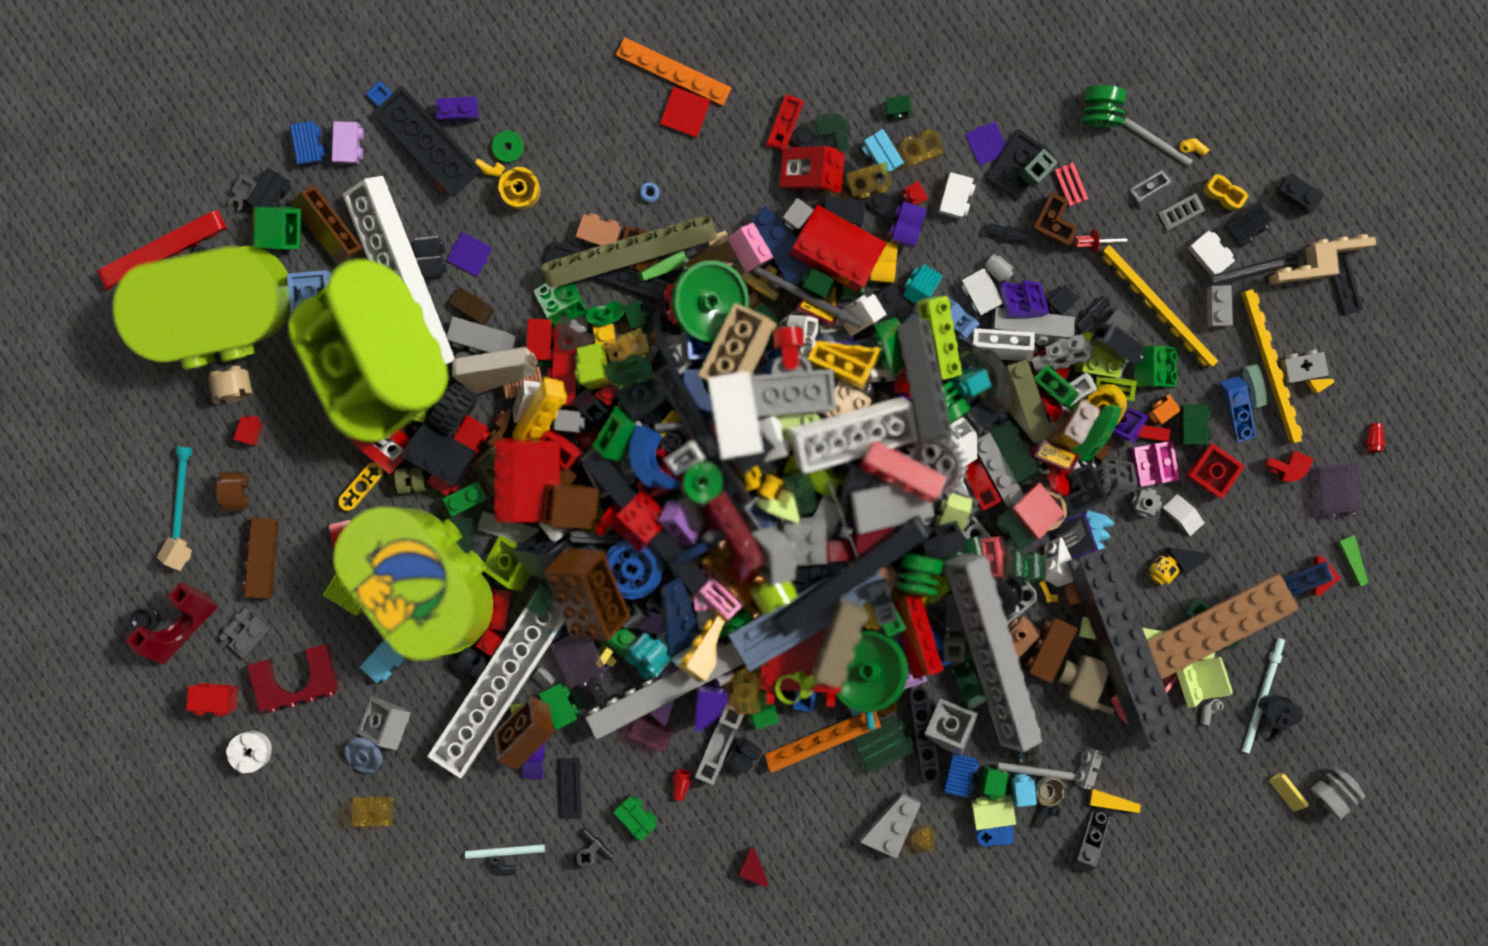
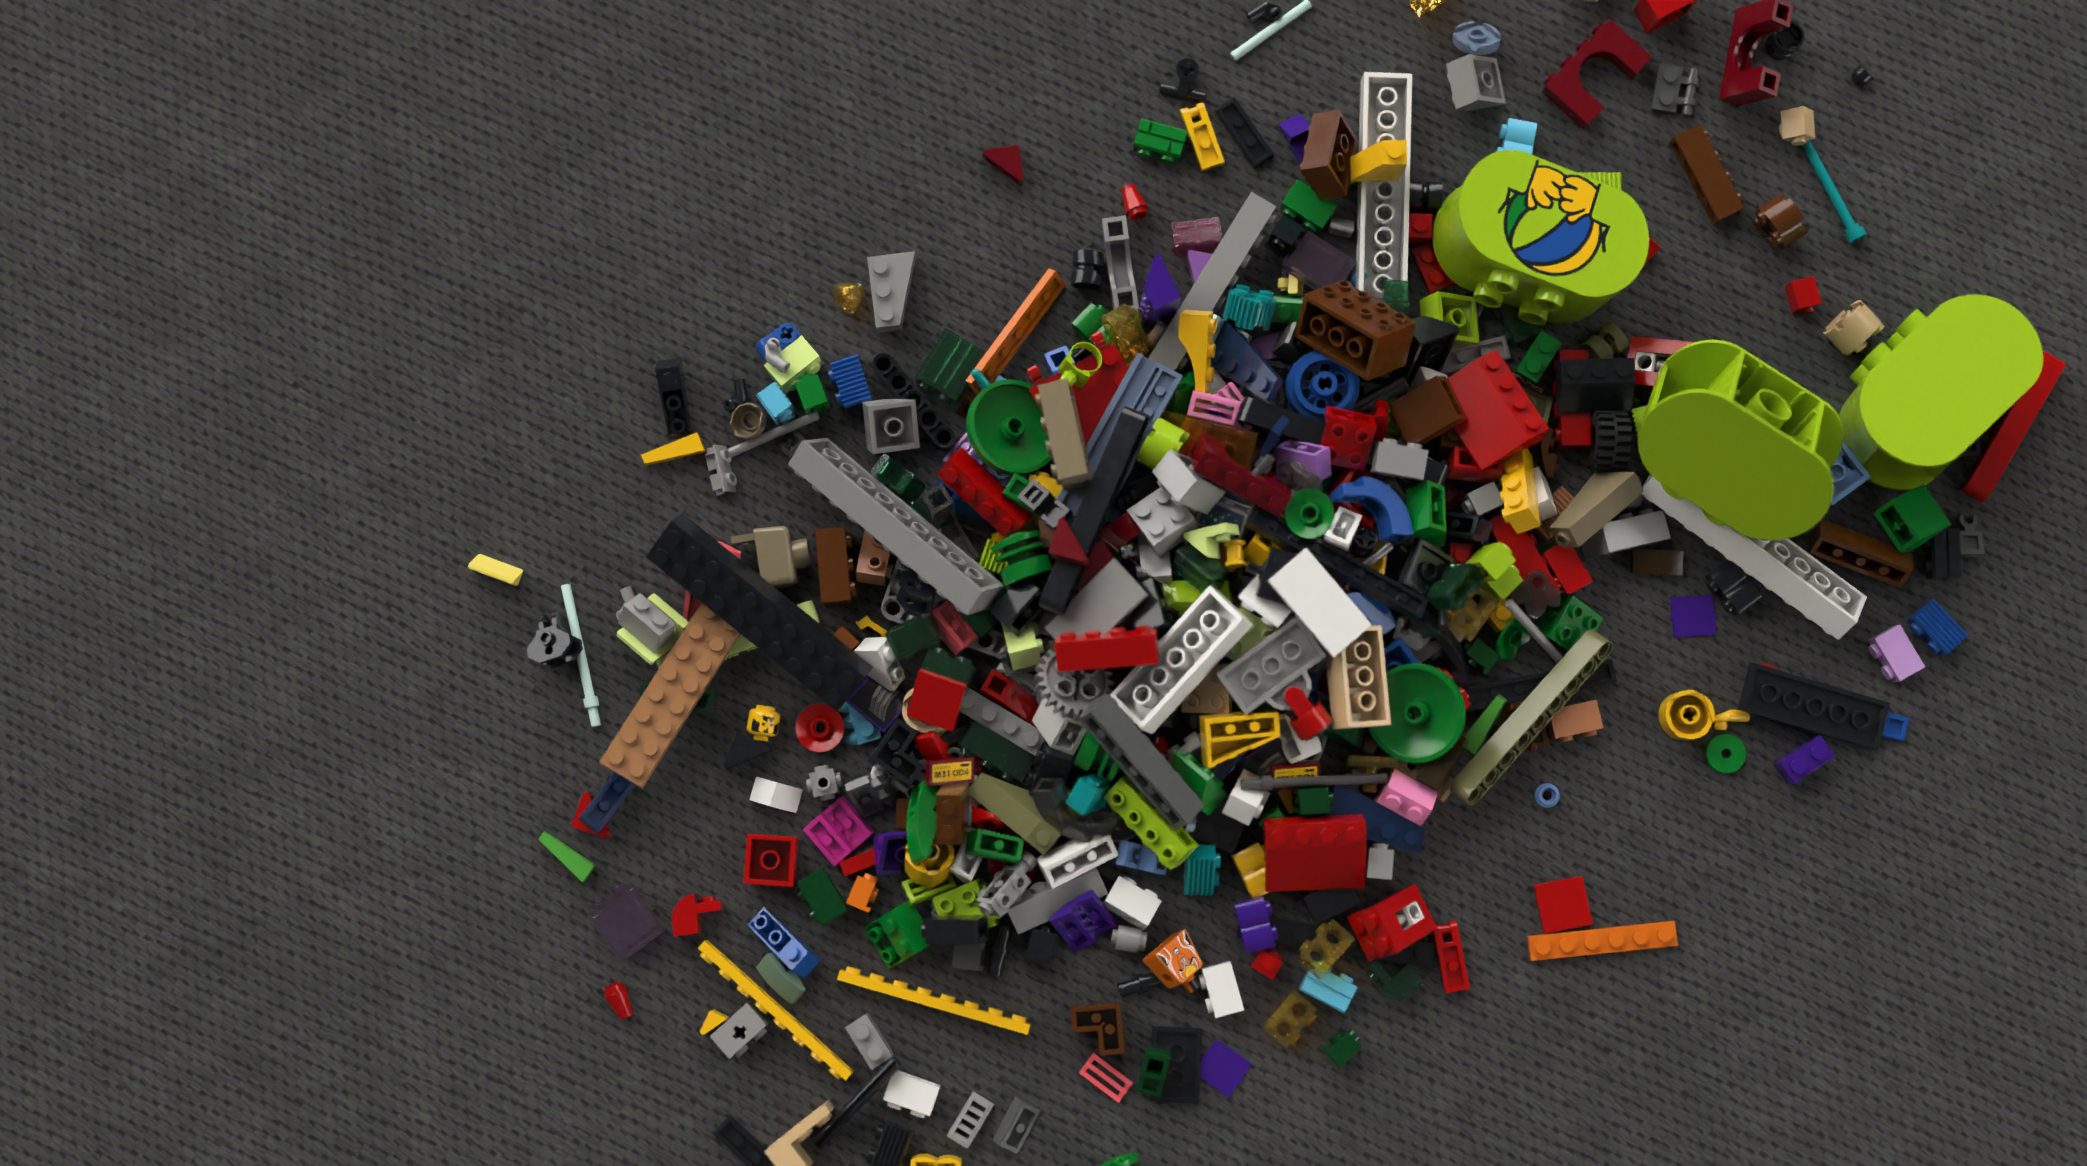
camera: 150 degrees right, 5 degrees down
(104, 563) = (1861, 74): none -> black hinge
(347, 494) = (1660, 291): yellow beam -> none
(494, 704) = (1379, 162): none -> yellow slope
(590, 309) = (1533, 630): none -> light grey bar
(603, 802) = (1202, 137): none -> yellow plate
(613, 482) = (1399, 460): none -> light grey brick
(887, 562) = (1065, 545): none -> dark red slope
(977, 233) = (1175, 962): none -> orange torso
(1005, 826) = (773, 355): none -> light grey arm
(1093, 241) = (1046, 1029): red piece -> none
(1136, 539) = (807, 732): none -> red dish
(1206, 688) = (646, 623): none -> light grey brick
(1338, 792) = (444, 598): light grey wheel -> none

